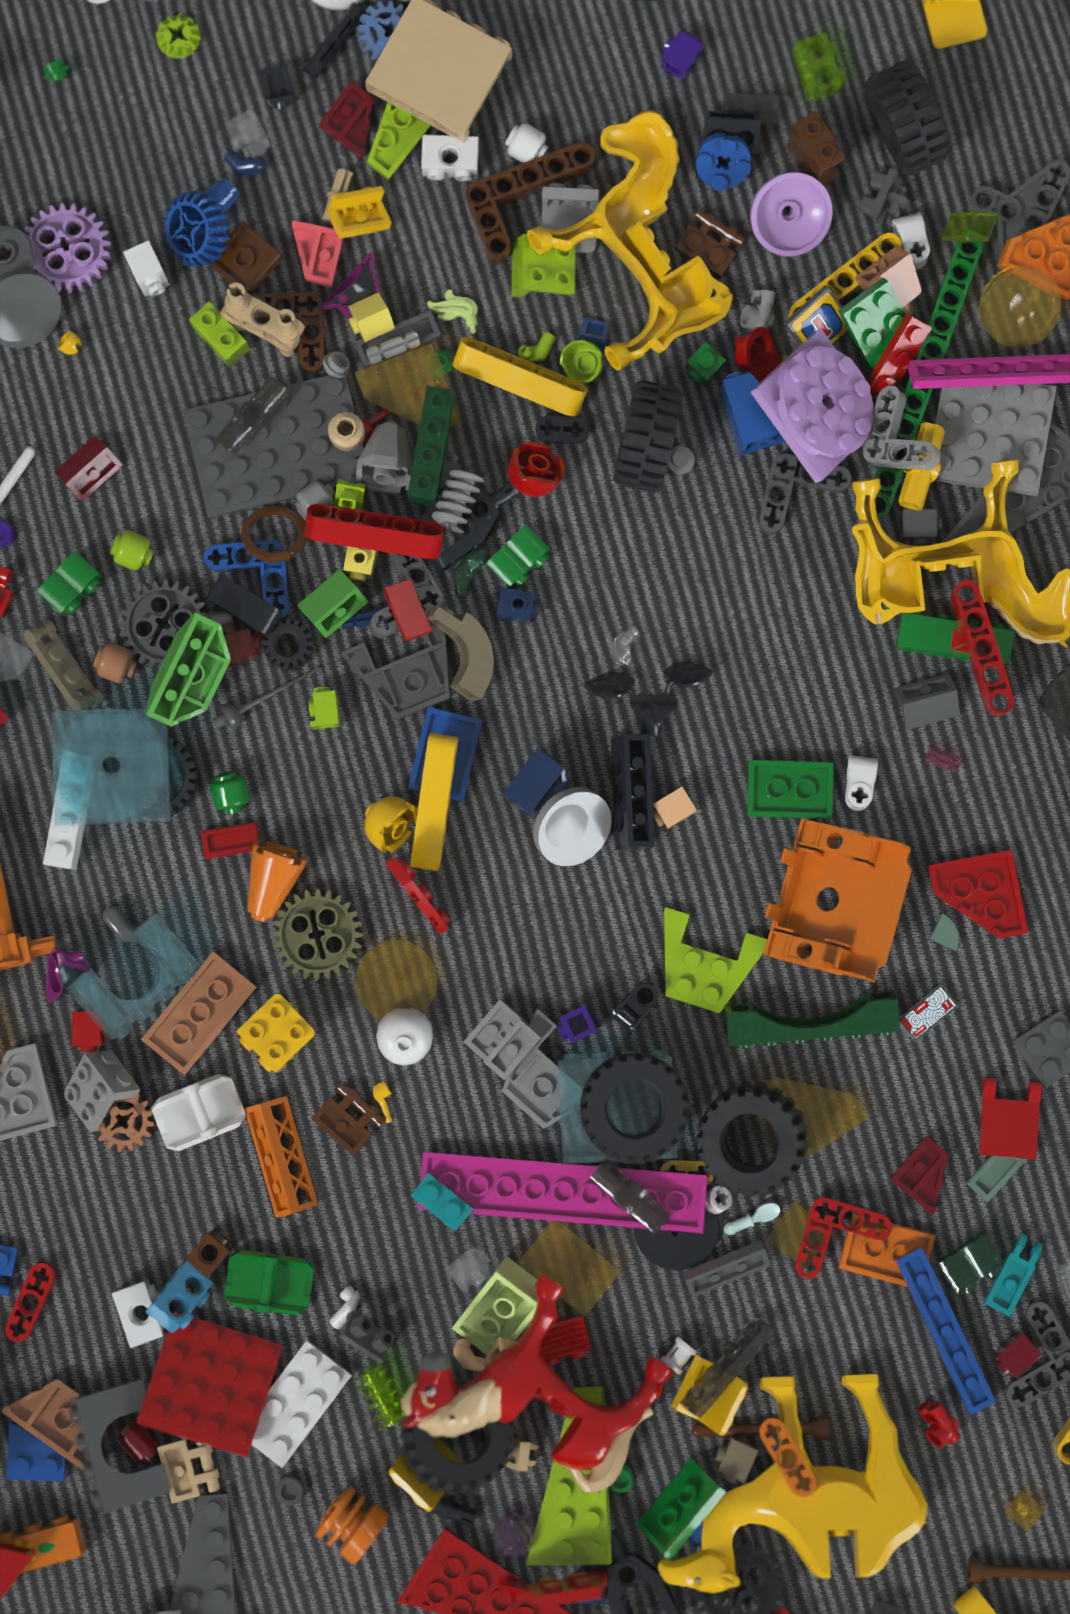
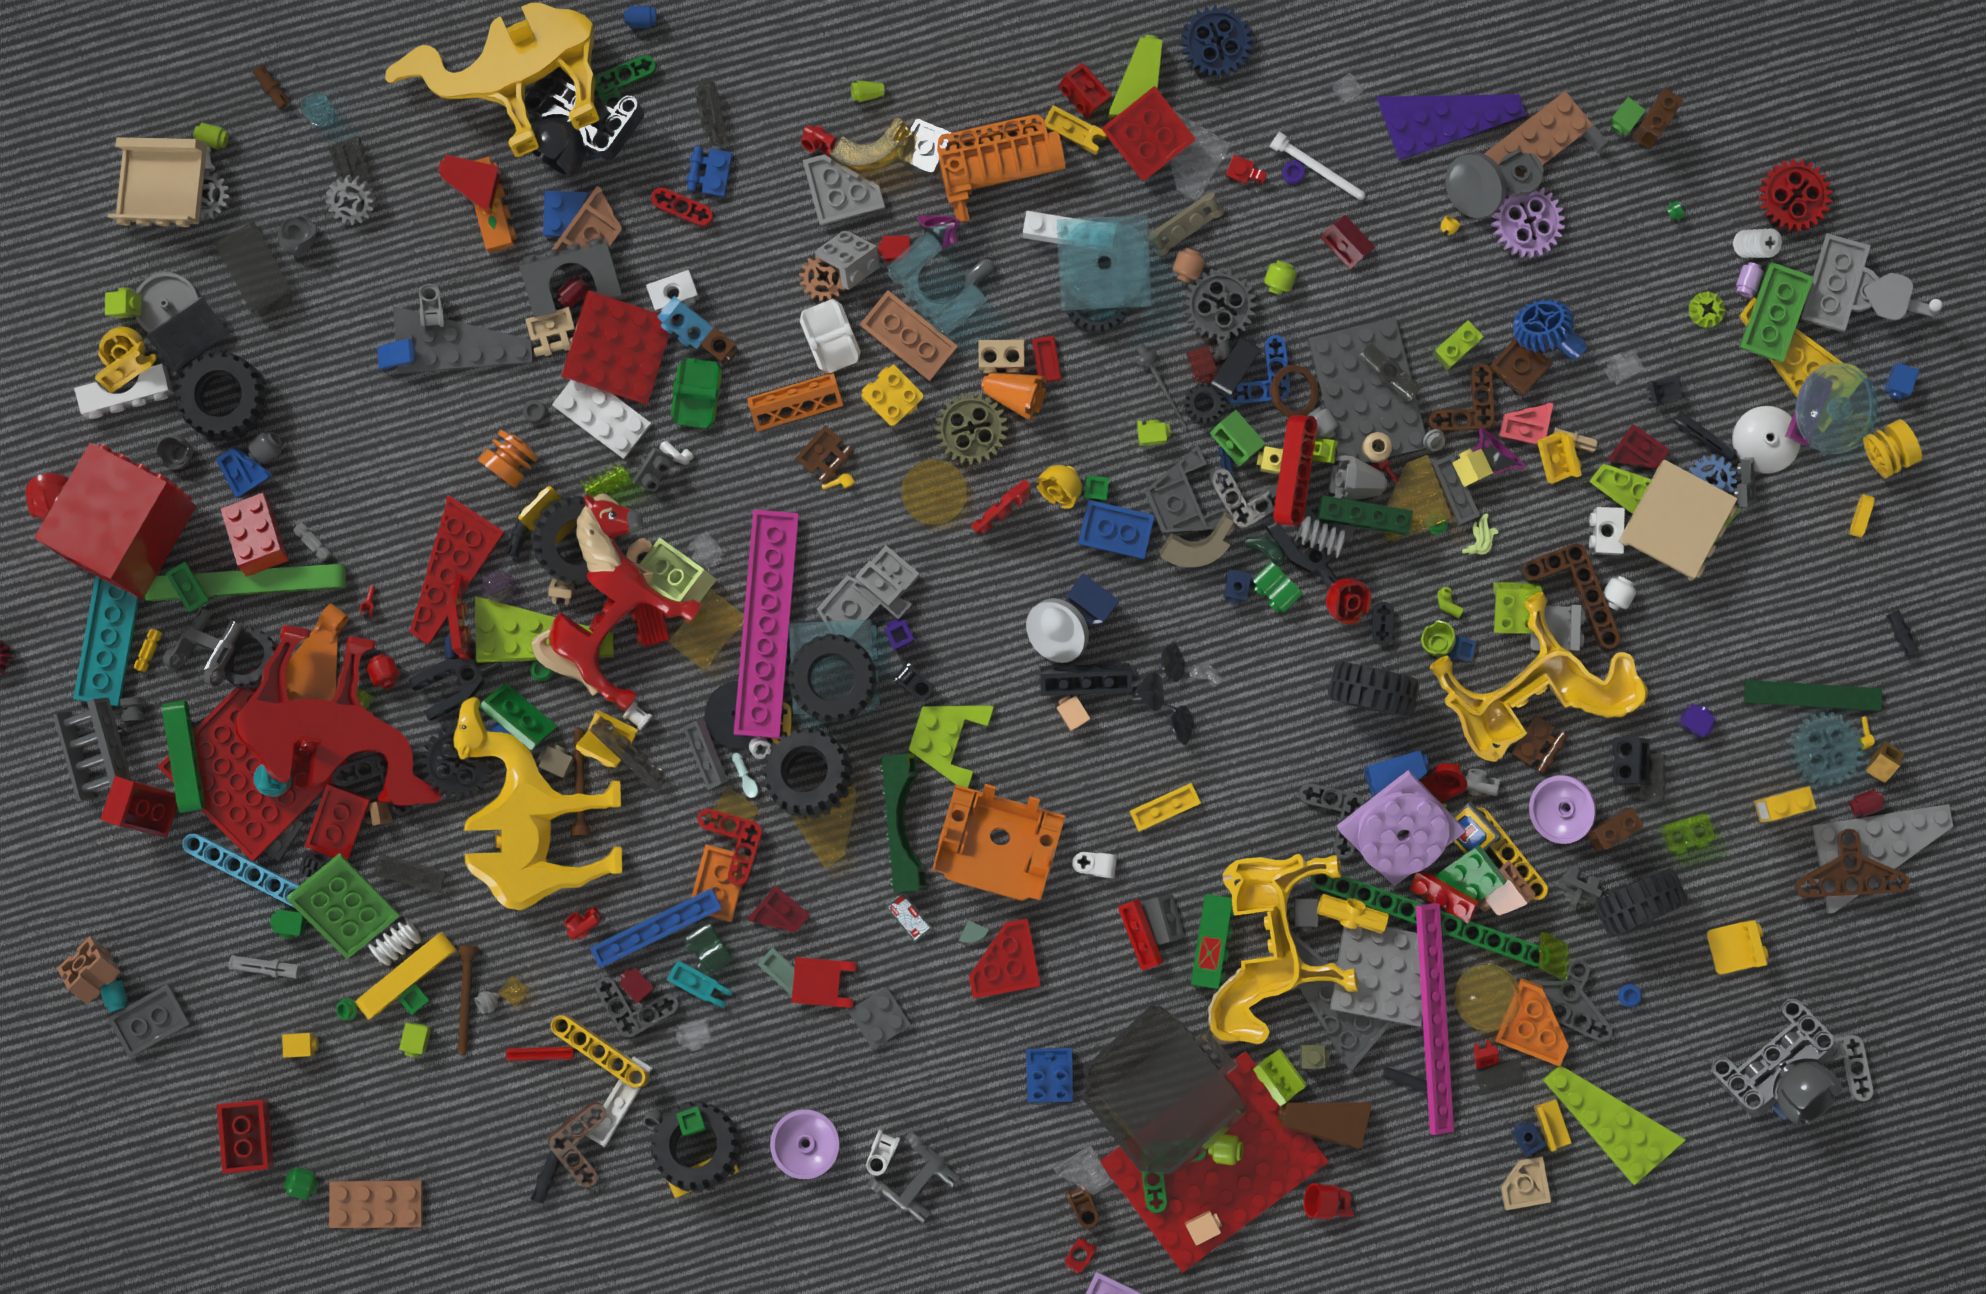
camera: 90 degrees right, 0 degrees up
(70, 584) = (1252, 229): green brick -> none
(147, 269) = (1509, 286): white brick -> none
(189, 672) = (1179, 323): bright green wedge -> none
(217, 896) = (1001, 349): none -> tan brick
(229, 792) = (1085, 358): green head -> none
(243, 310) = (1475, 364): tan piece -> none
(246, 166) = (1598, 365): dark blue arm -> none
(393, 347) = (1448, 485): light grey axle -> none
(393, 778) = (1096, 488): none -> green plate
(404, 1036) = (890, 498): white cylinder -> none
(407, 610) = (1231, 497): red tile -> none
(434, 801) = (1077, 520): yellow beam -> none
(442, 1202) = (758, 528): teal plate -> none
(519, 376) = (1425, 588): yellow beam -> none
(630, 1196) = (762, 675): clear smoke piece -> none
(681, 460) = (1358, 719): light grey plate -> none
(704, 365) = (1436, 738): green brick -> none
(726, 146) = (1595, 754): blue plate -> none
(782, 1434) = (575, 795): orange beam -> none
(789, 696) = (1165, 807): none -> yellow plate
(790, 789) = (1088, 807): green plate -> none
(887, 440) = (1368, 888): light grey beam -> none
(913, 237) = (1546, 909): white piece -> none
(942, 760) = (1113, 931): clear pink piece -> none
(946, 727) = (1140, 934): none -> red plate
(982, 634) = (1214, 960): red beam -> none
(1013, 140) = (1629, 995): none -> blue plate
(1038, 1545) = (486, 1001): none -> light grey plate

